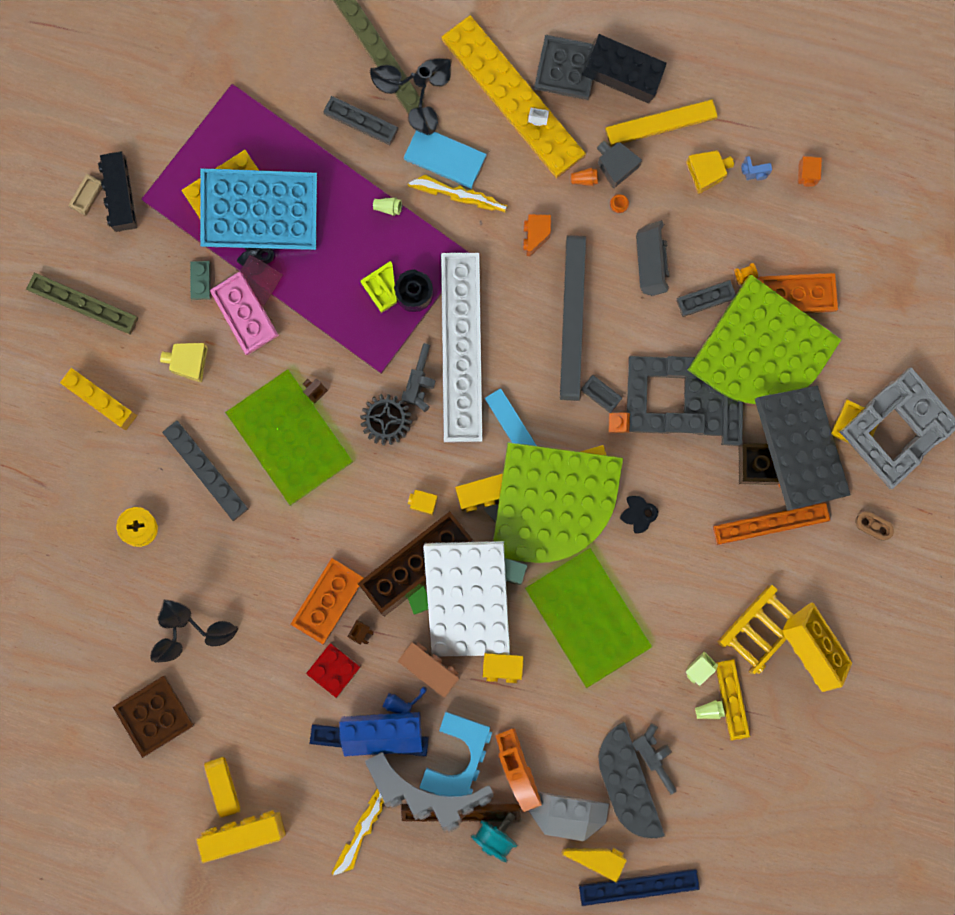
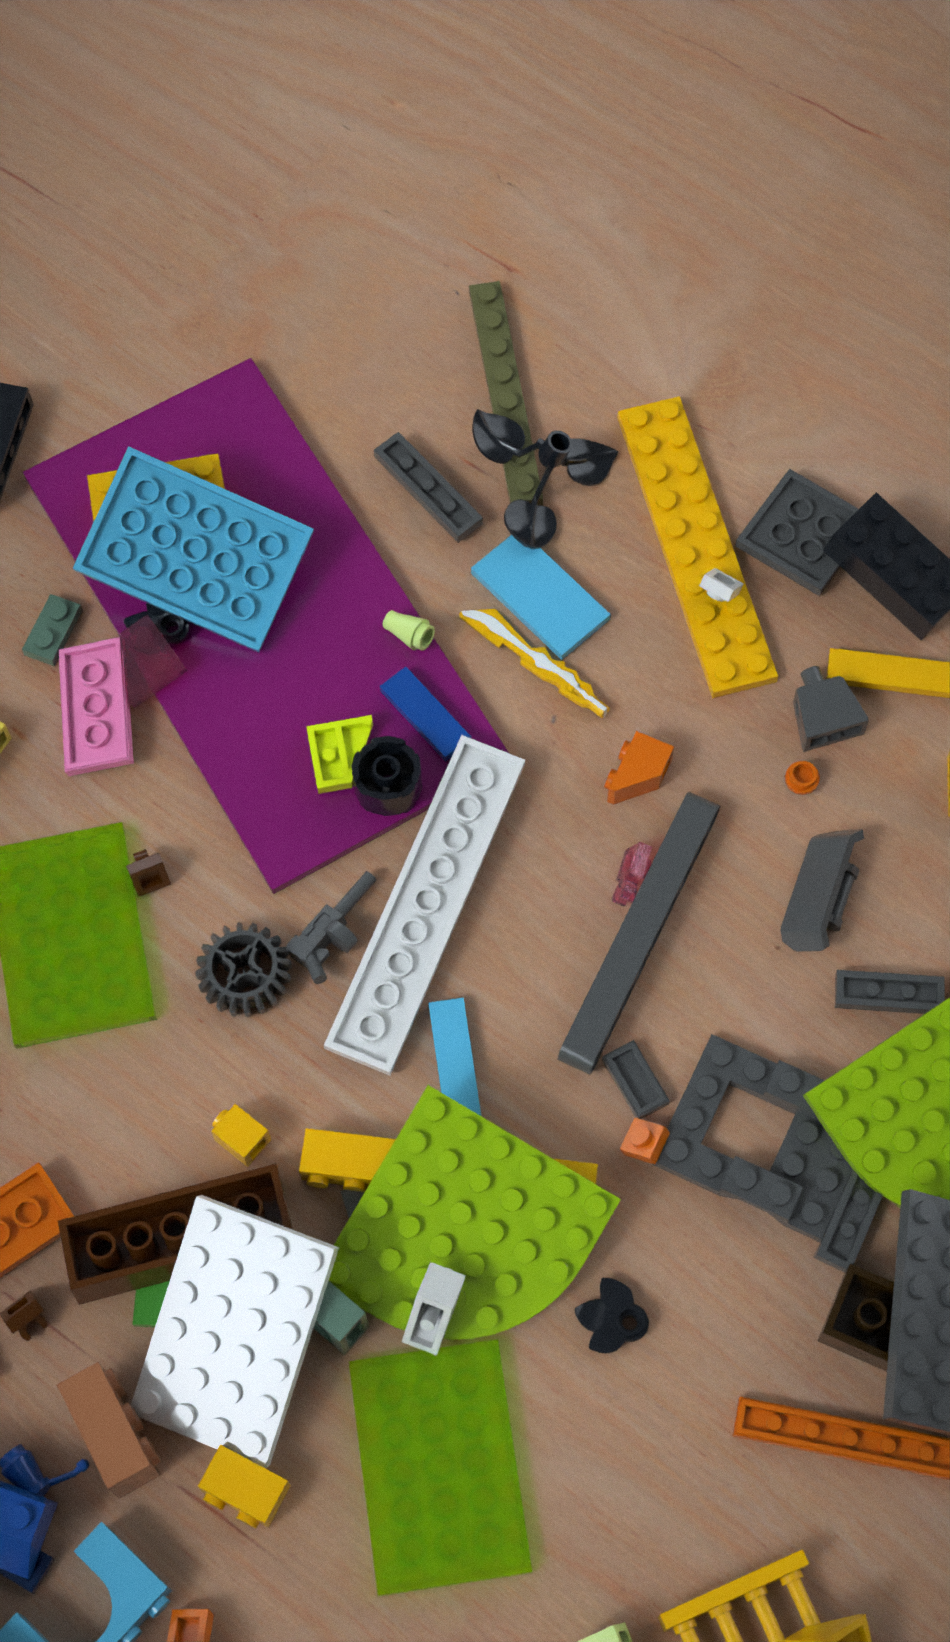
camera: 25 degrees right, 15 degrees down
(415, 247) = (424, 712): none -> blue tile
(556, 287) = (632, 869): none -> clear pink plate
(556, 547) = (433, 1308): none -> white slope
(585, 177) = (762, 713): orange cone -> none

